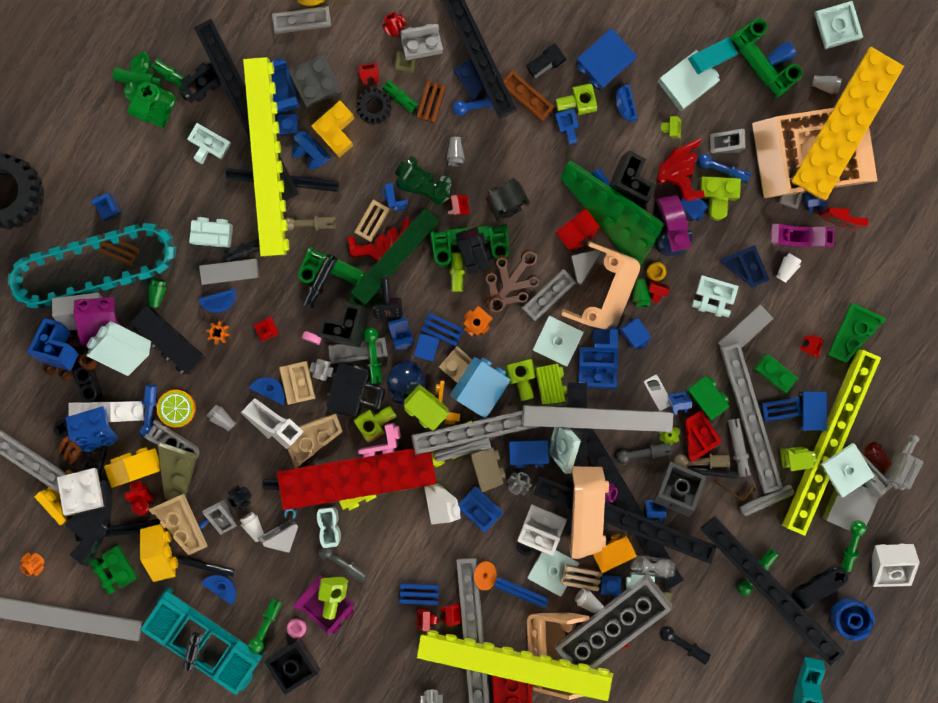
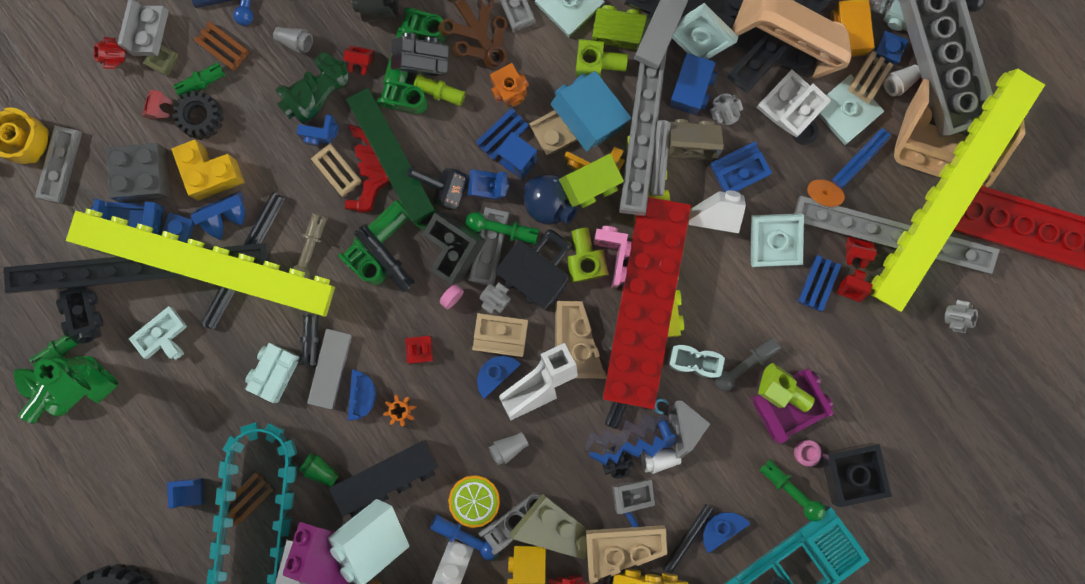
camera: 70 degrees left, 5 degrees down
(254, 495) = (621, 443): none -> piece
(438, 553) = (777, 239): none -> light aqua plate

